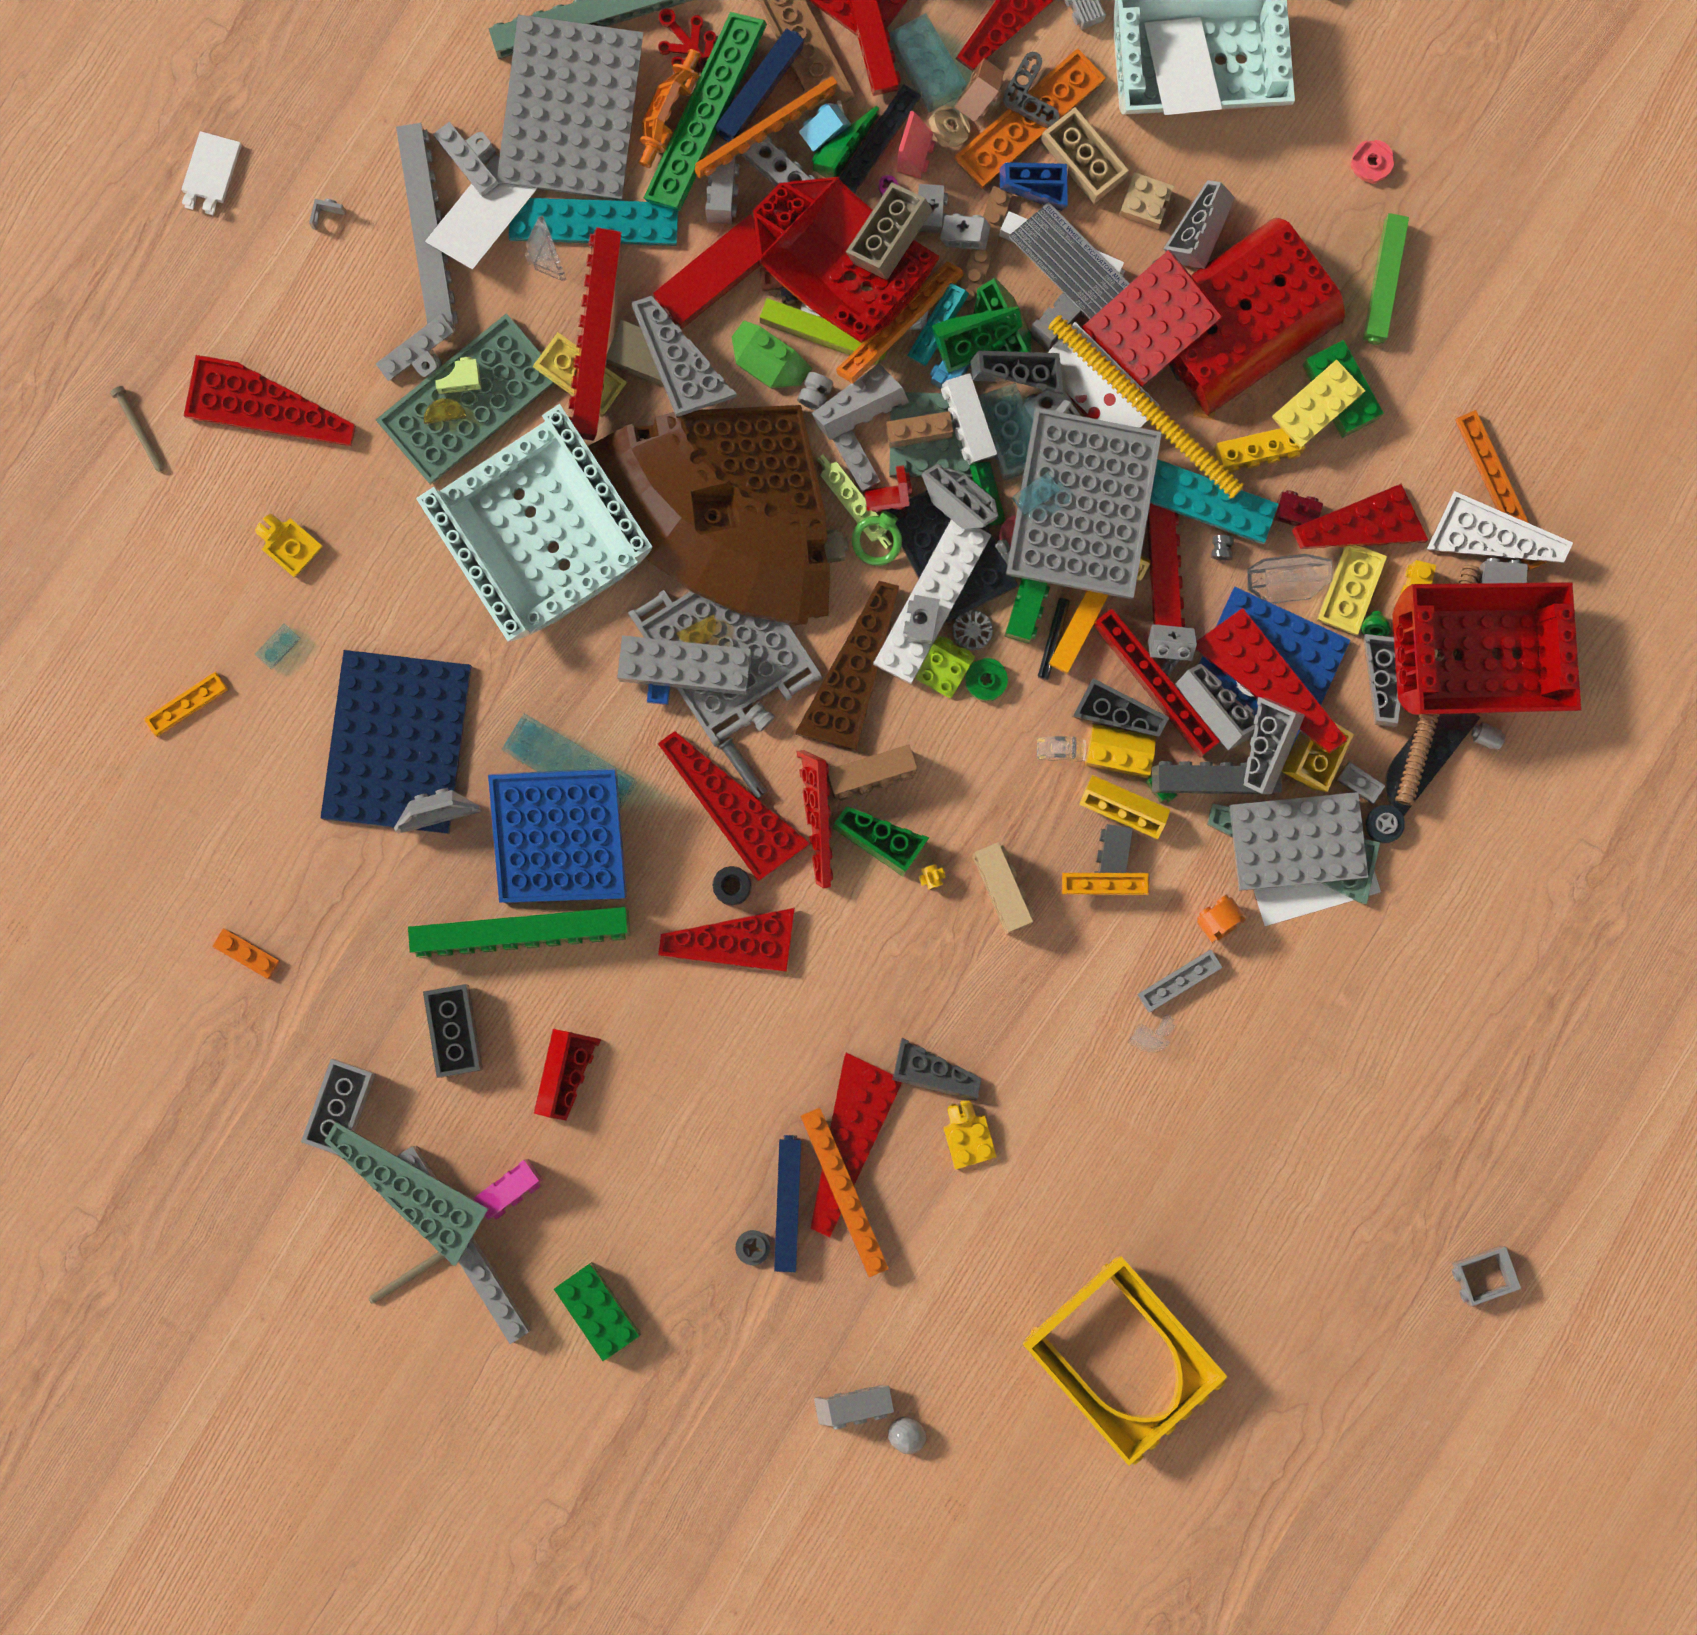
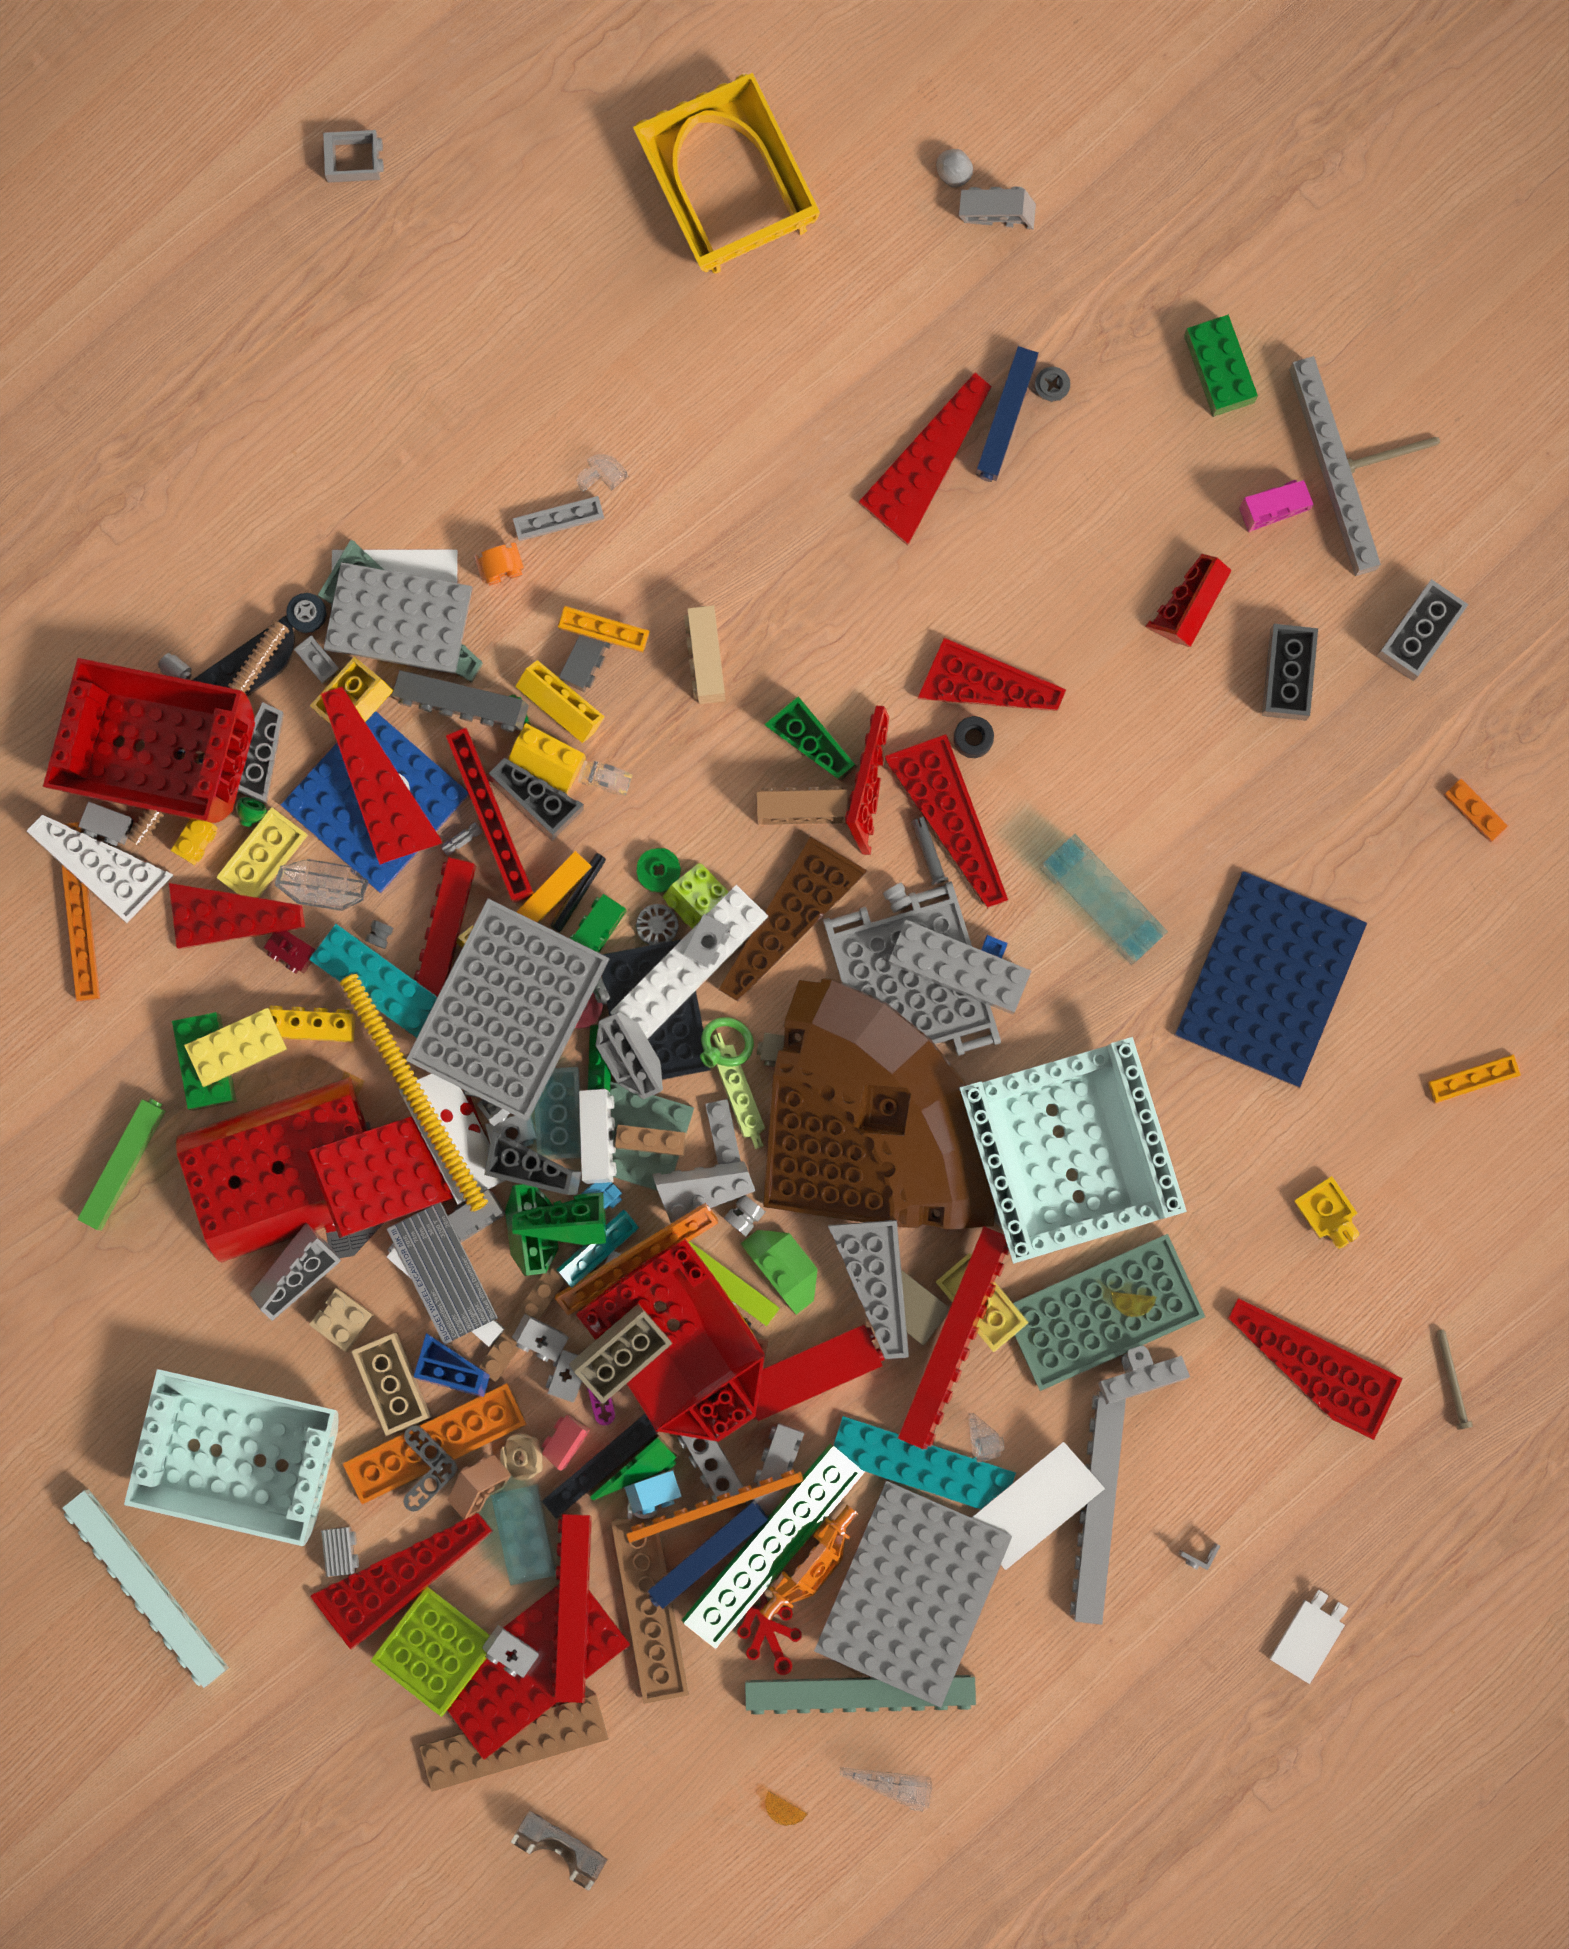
camera: 155 degrees left, 0 degrees up
(277, 646) = (1366, 1110): clear light blue plate -> none
(429, 1205) = (1356, 504): sand green wing -> none
(434, 809) = (1249, 894): light grey wedge -> none
(462, 378) = (1102, 1332): yellowish green arch -> none
(469, 156) = (1033, 1572): light grey plate -> none
(518, 931) = (1198, 749): green brick -> none
(557, 835) = (1134, 830): blue plate -> none
(699, 632) = (935, 998): clear yellow tile -> none
(844, 1192) = (948, 409): orange plate -> none
(890, 497) = (700, 1082): red bracket -> none
(932, 876) = (772, 688): yellow gear -> none
(932, 1072) = (834, 503): dark grey wing -> none
(968, 1136) = (812, 429): yellow plate -> none
(1036, 493) = (554, 1029): clear light blue plate -> none
(1172, 642) = (462, 847): light grey brick -> none
(1182, 66) = (260, 1446): white sticker -> none
(1217, 706) = (435, 768): light grey wedge -> none
(1271, 743) = (395, 714): light grey wedge -> none
(1371, 149) = (81, 1291): coral plate -> none

